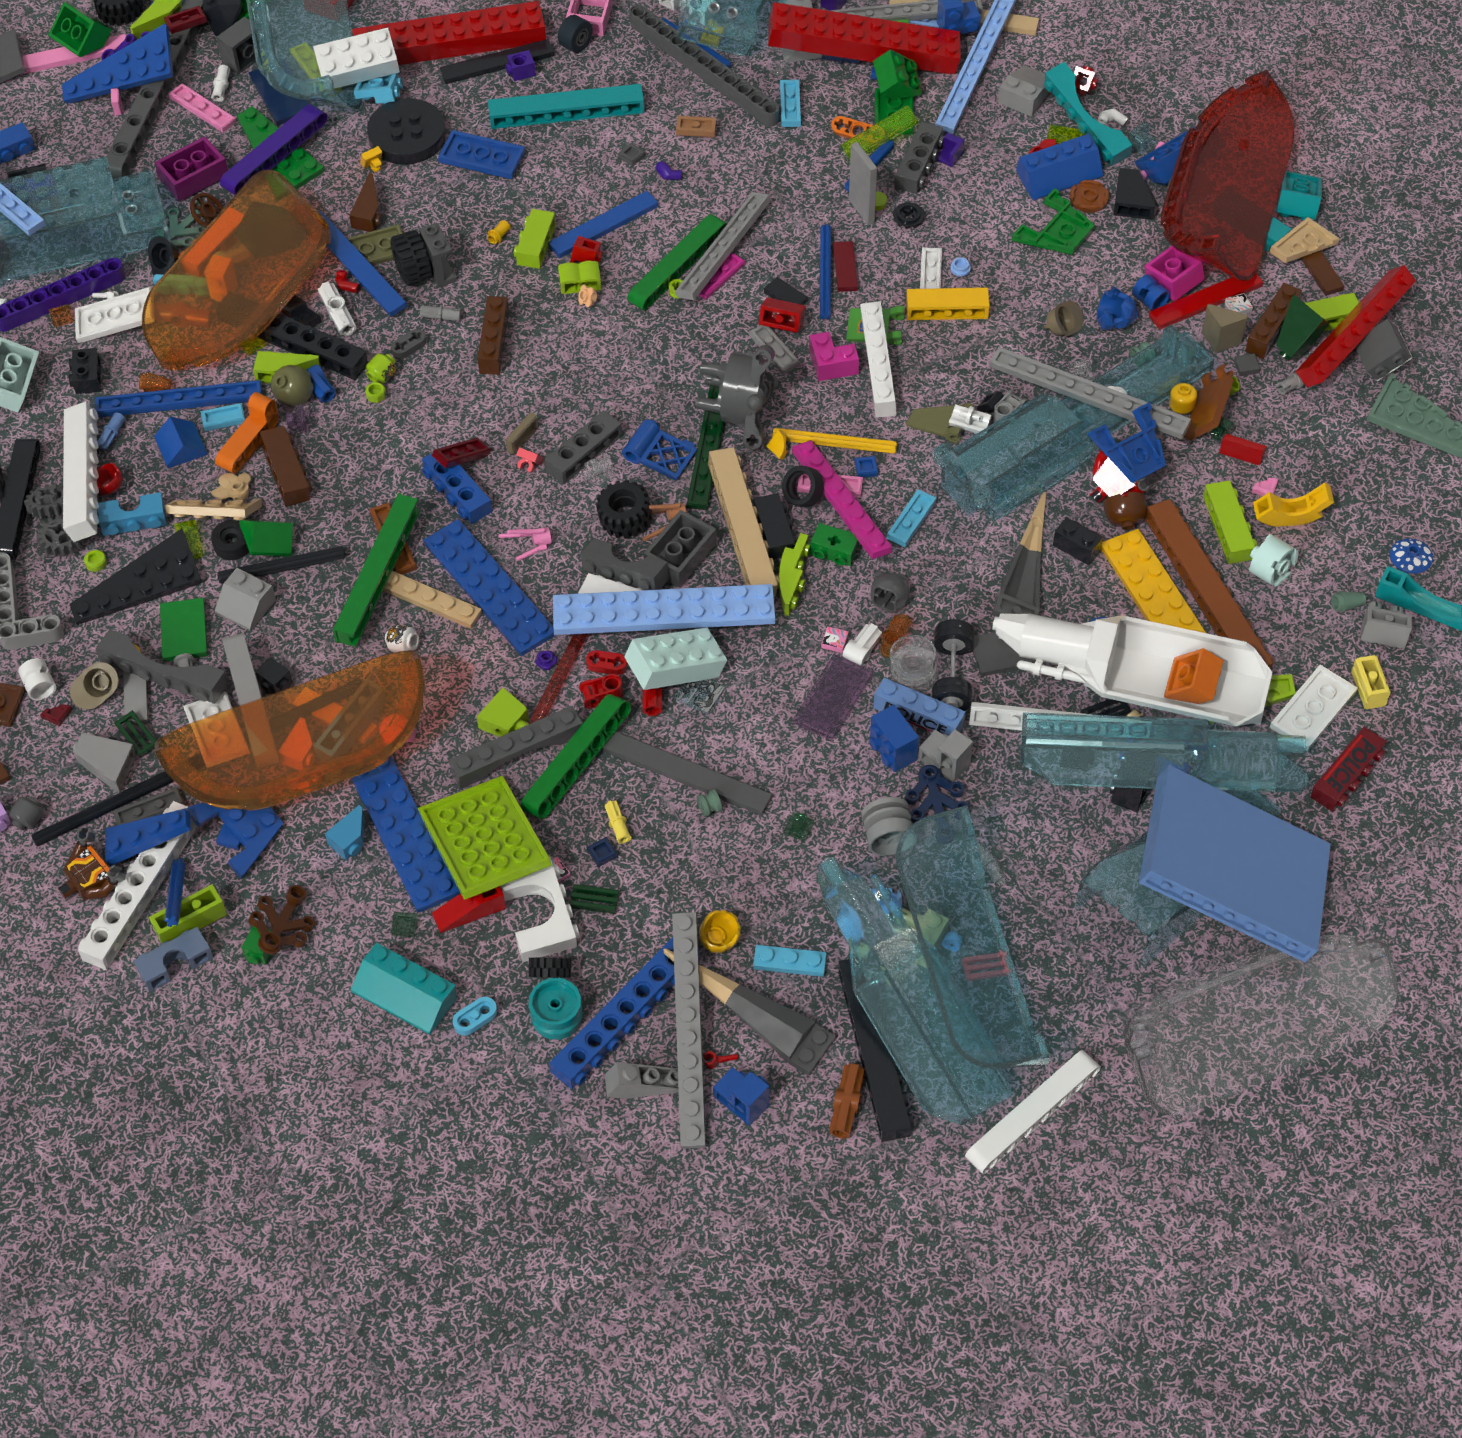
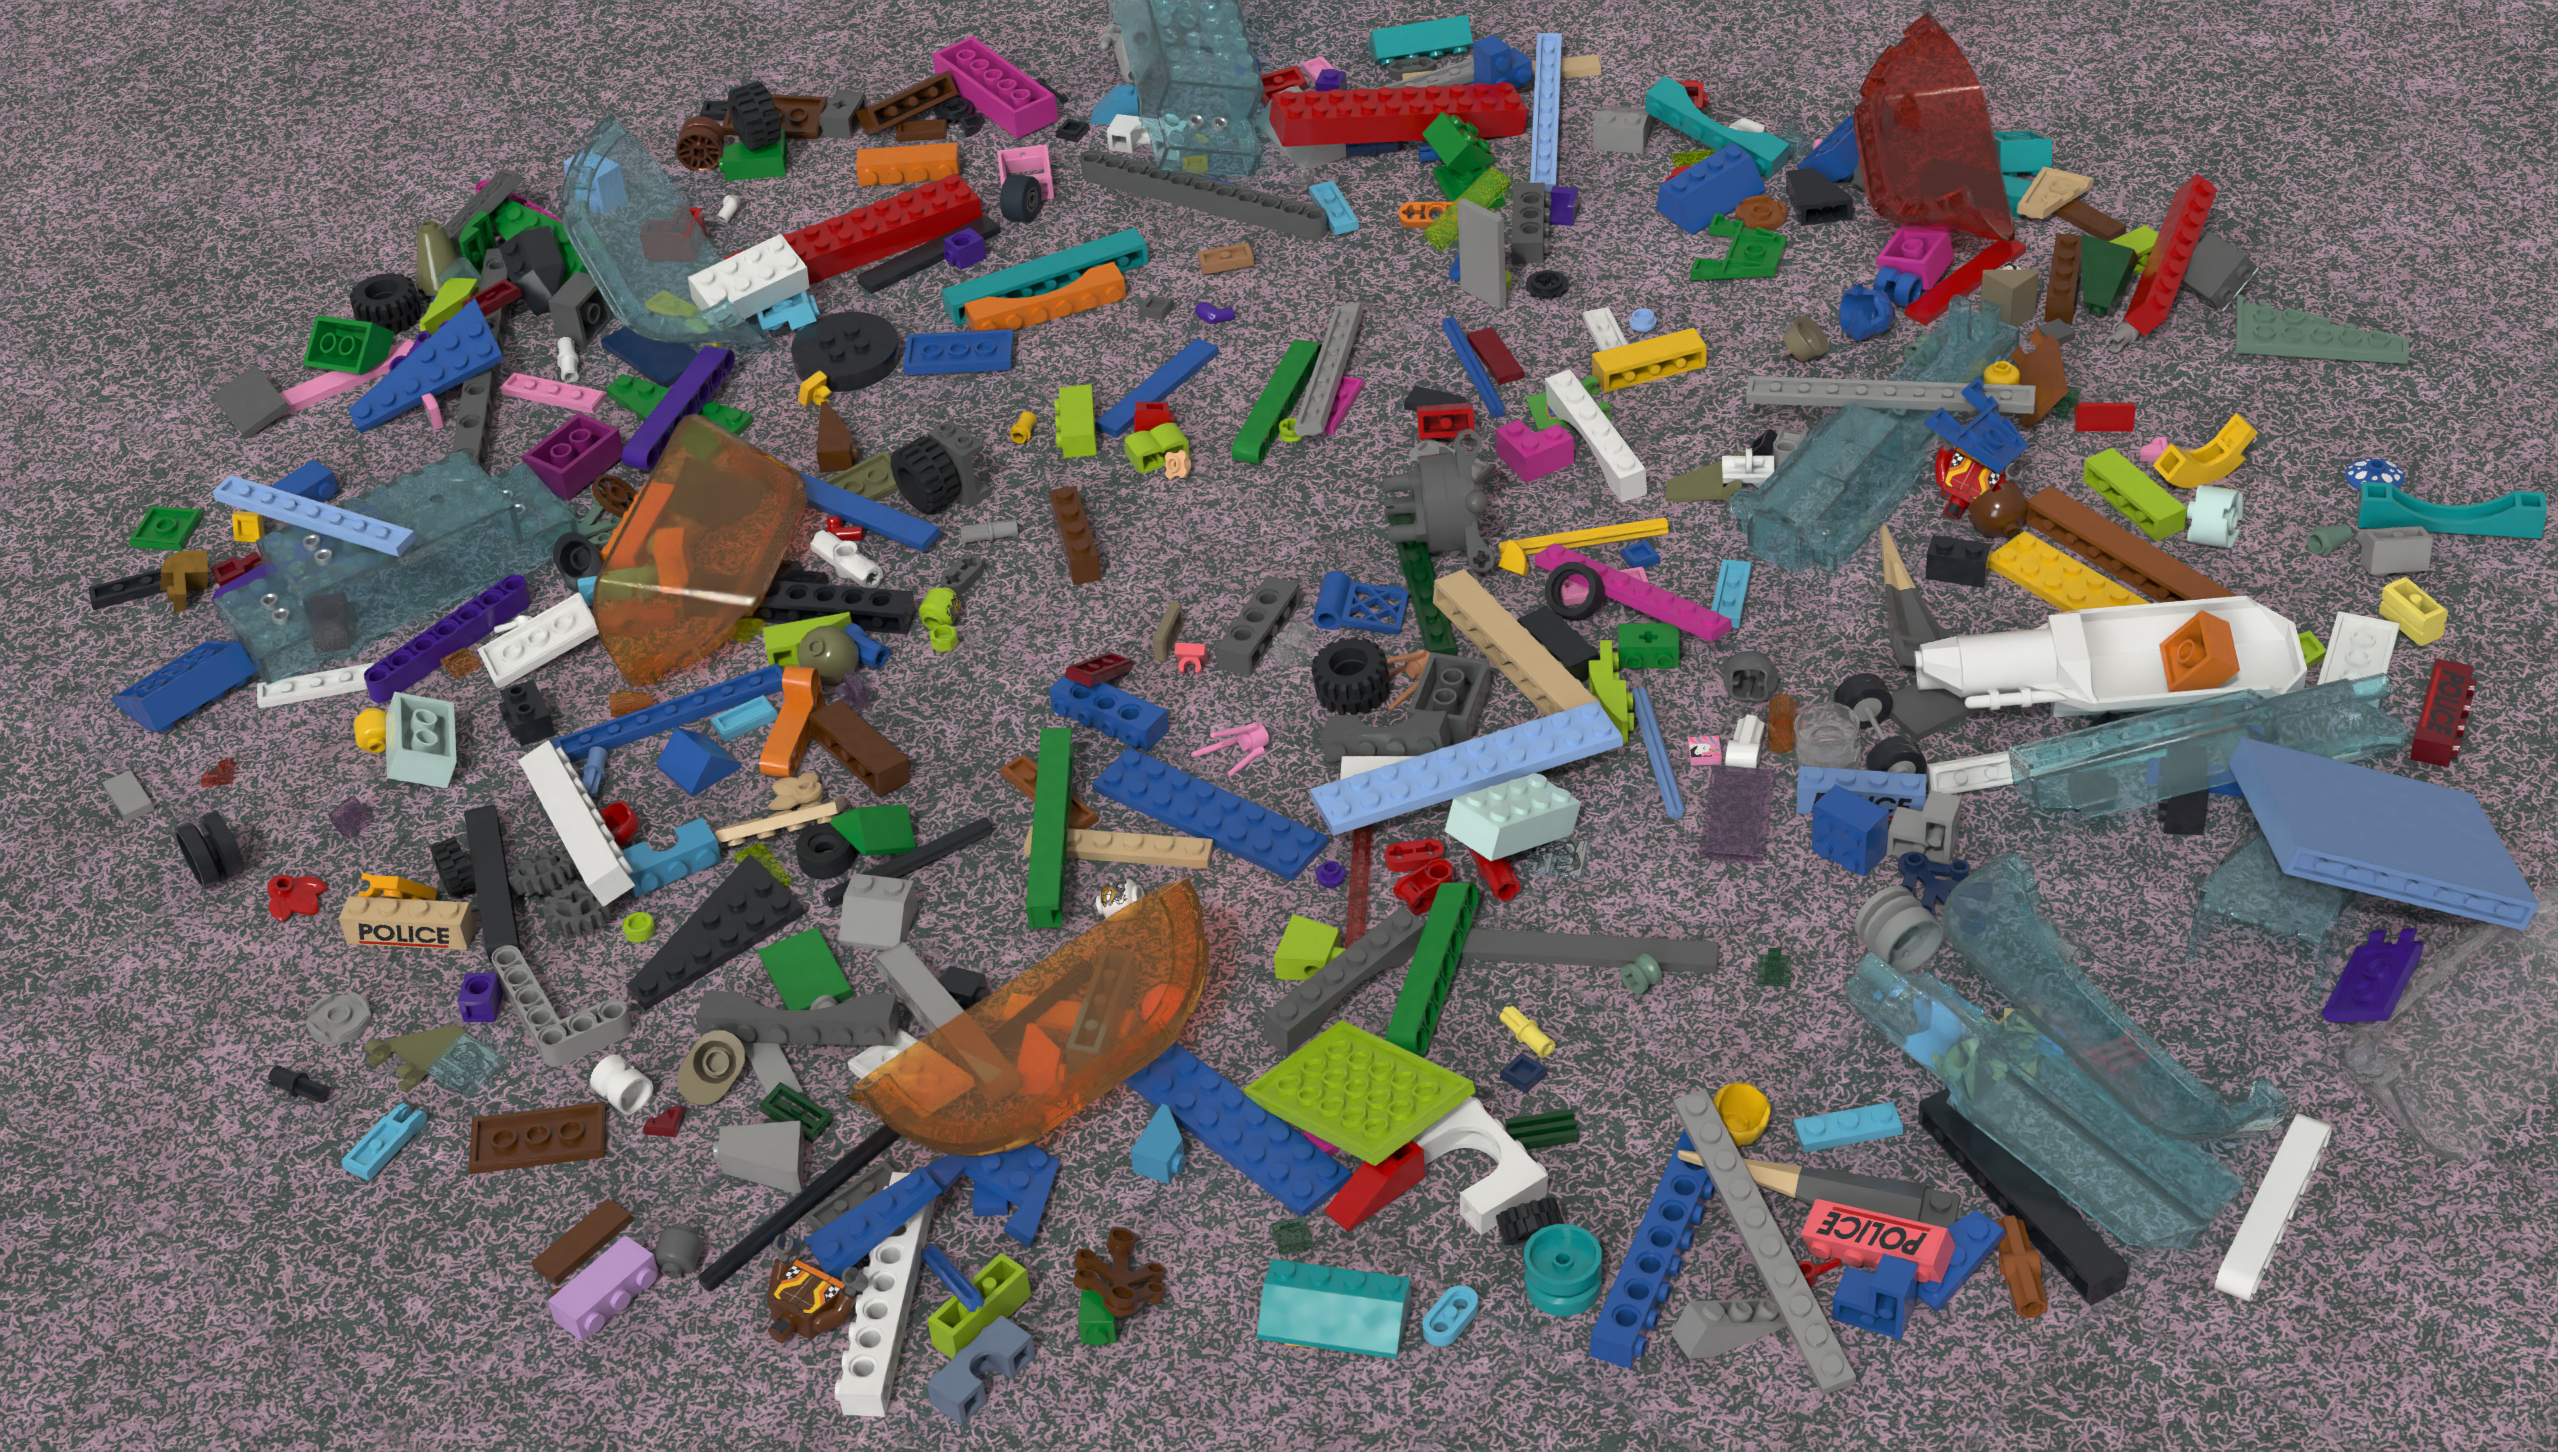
camera: 15 degrees left, 15 degrees down
(594, 127) = (1093, 289): none -> orange arch
(761, 1055) = (1865, 1235): none -> coral brick
(801, 1081) = (1974, 1241): none -> blue wing
(802, 632) = (1658, 754): none -> medium blue axle
(1188, 964) = (2374, 978): none -> dark purple tile

